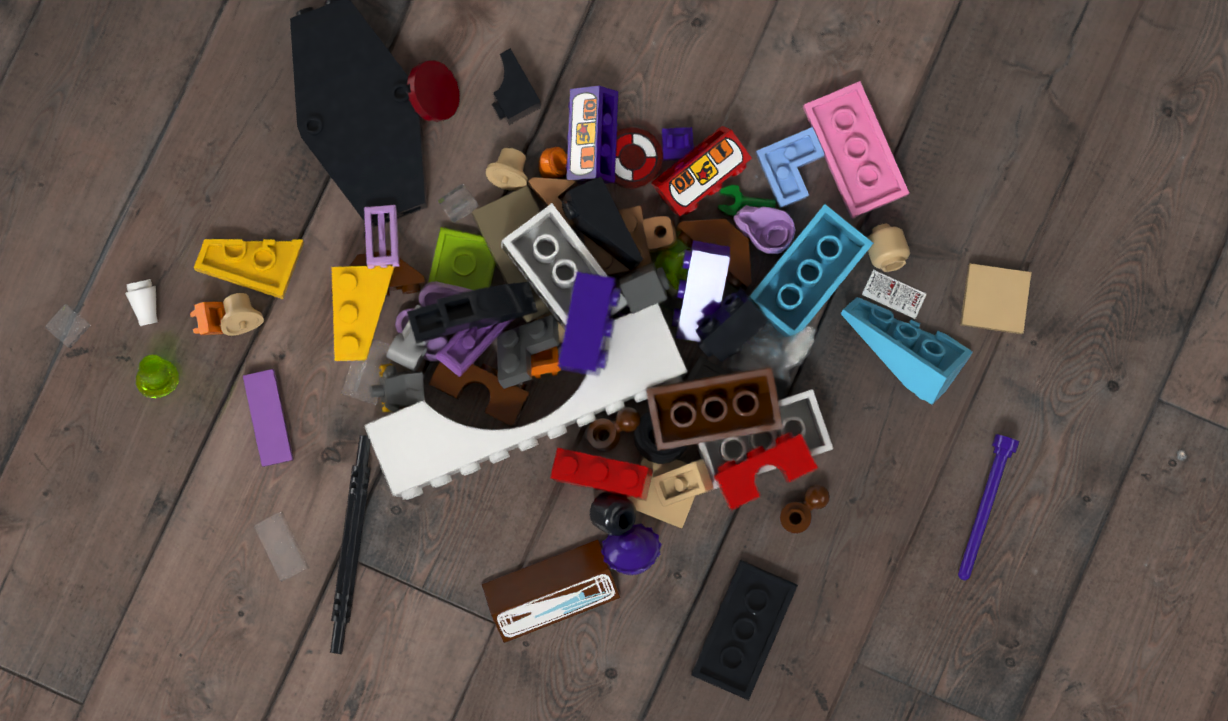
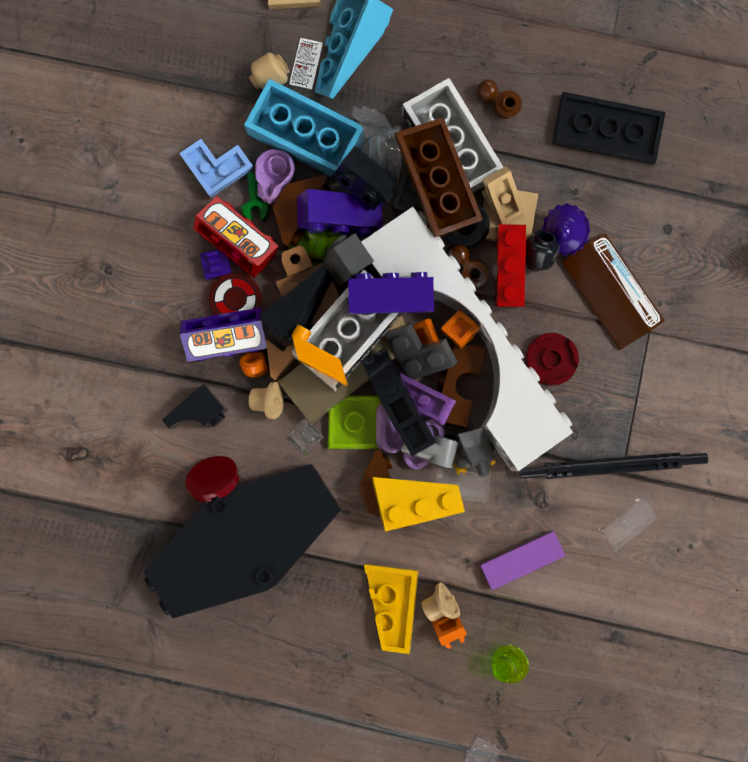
camera: 100 degrees left, 0 degrees up
(143, 301) = (445, 692): white cone -> none
(383, 261) = (371, 487): lavender tile -> none
(487, 502) = (552, 358): none -> dark red tile
(537, 228) = (316, 357): none -> light orange piece
(540, 399) = (460, 329): none -> orange tile
(738, 480) = (493, 145): red arch -> none
(856, 150) = (191, 114): bright pink plate -> none

